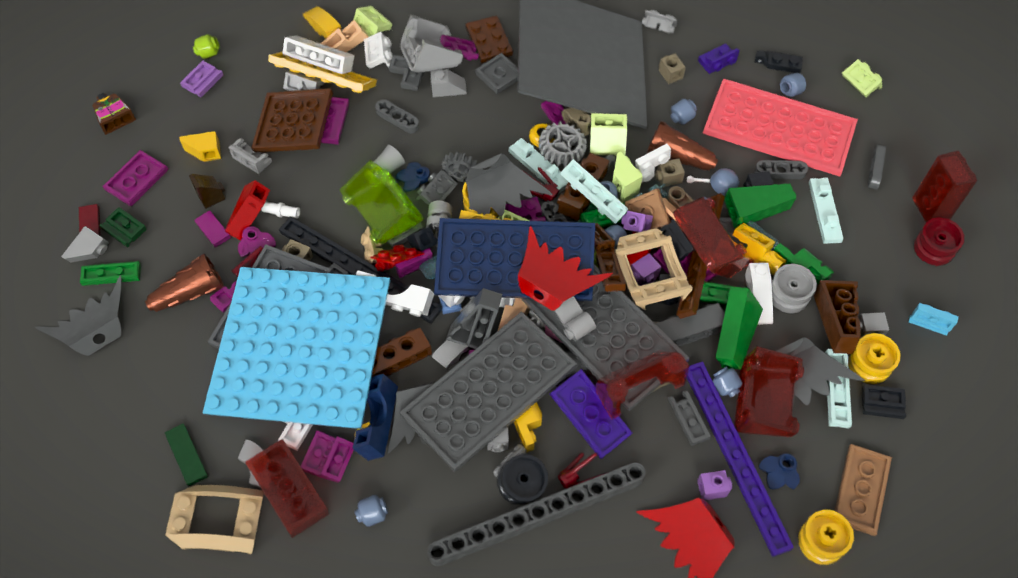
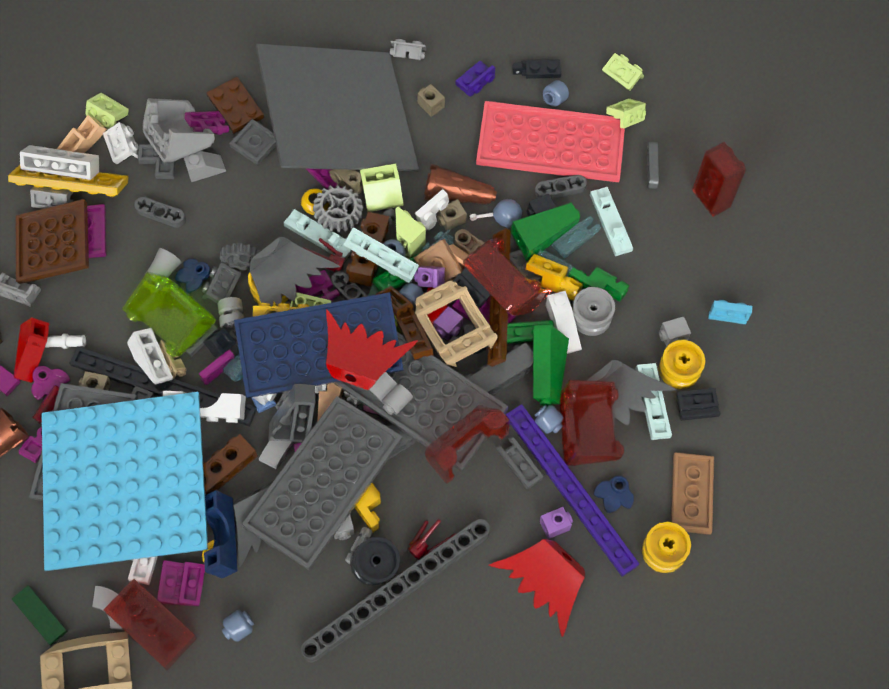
camera: 15 degrees left, 5 degrees up
(321, 21) = (52, 122): yellow slope -> none
(353, 237) = (149, 355): none -> white slope
(388, 258) = (197, 366): red hinge -> none
(586, 412) = (418, 478): dark purple tile -> none
(683, 111) = (452, 145): sand blue head -> none
(787, 217) = (575, 237): none -> clear light blue hinge
(839, 313) = (641, 326): reddish brown wedge -> none
(862, 114) = (628, 112): none -> yellowish green bracket
(939, 241) = (723, 231): dark red wheel -> none

